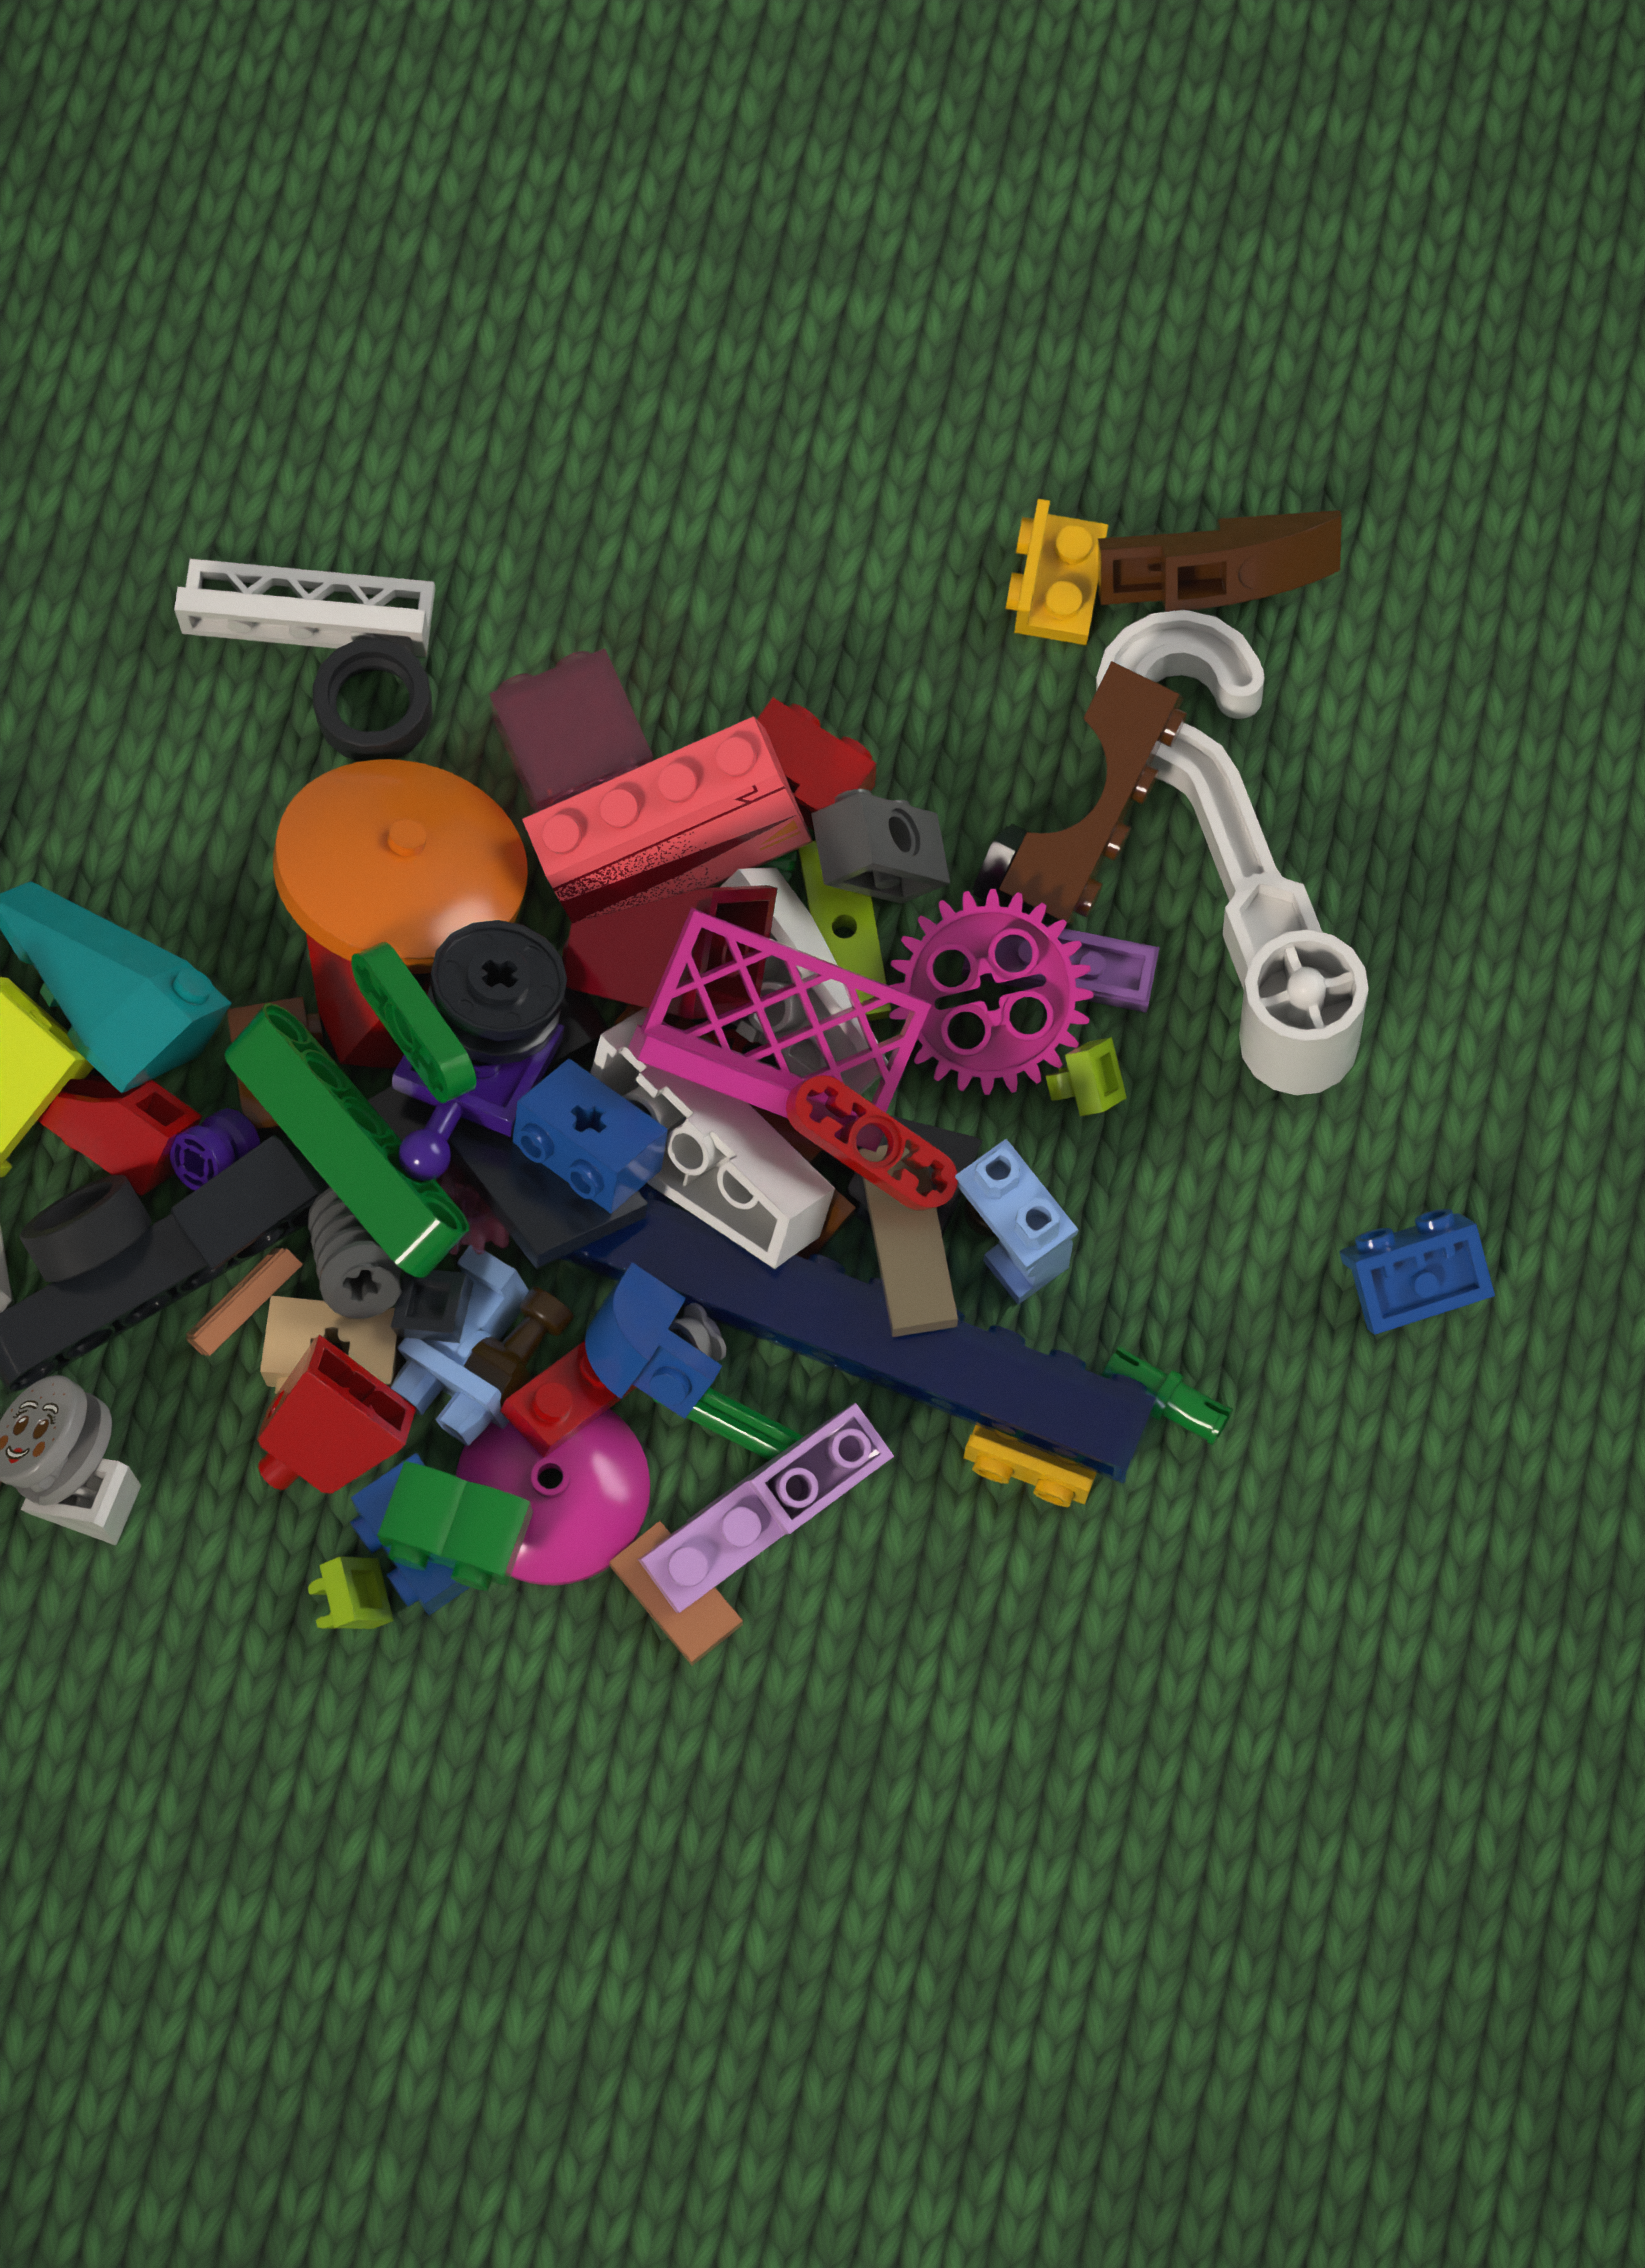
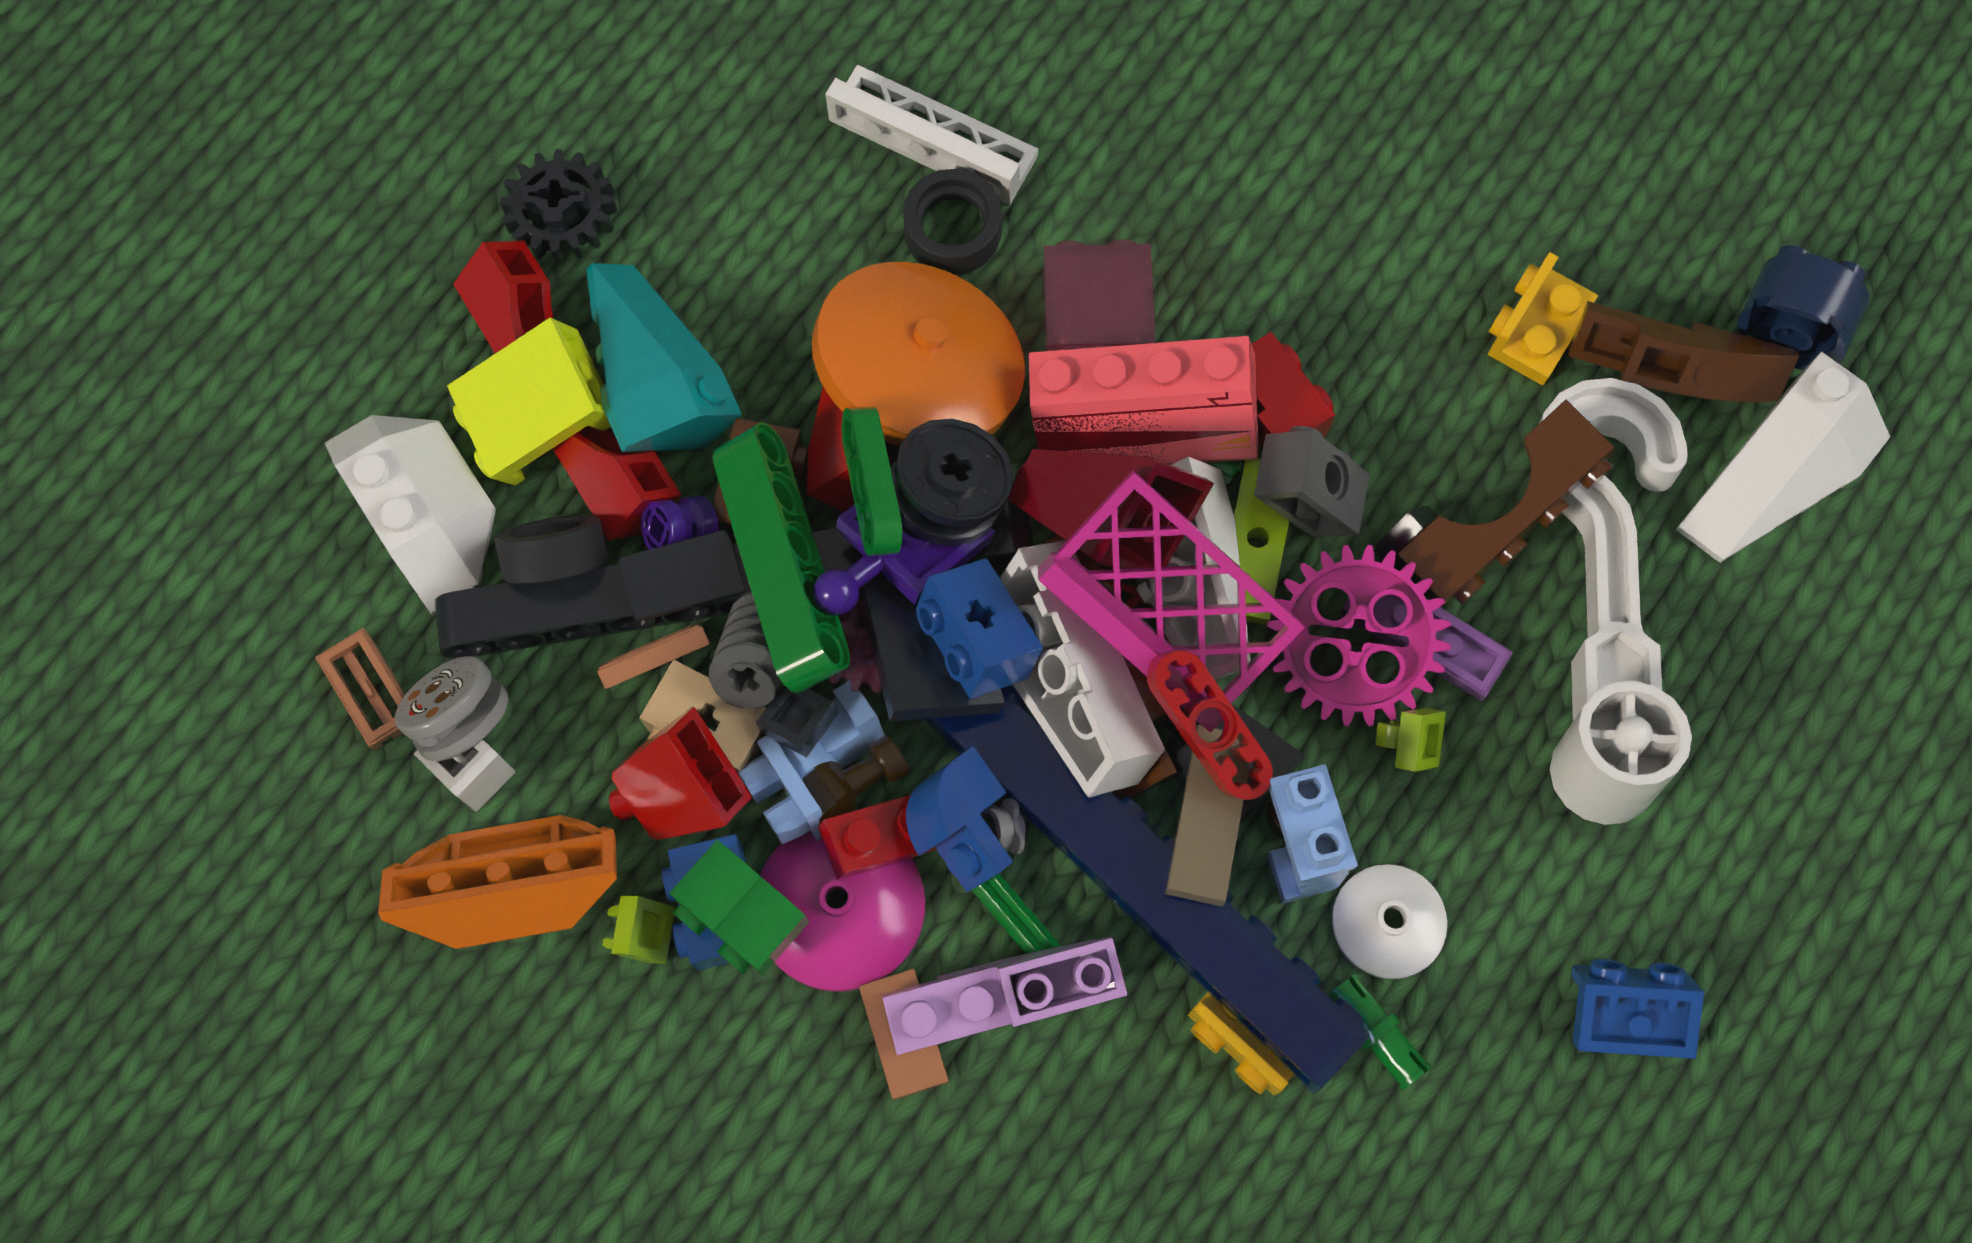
camera: 25 degrees right, 0 degrees up
(186, 1599) = (501, 881): none -> orange wedge
(1131, 1309) = (1366, 937): none -> white dish
(1329, 460) = (1806, 304): none -> dark blue brick
(1382, 621) = (1801, 452): none -> white wedge

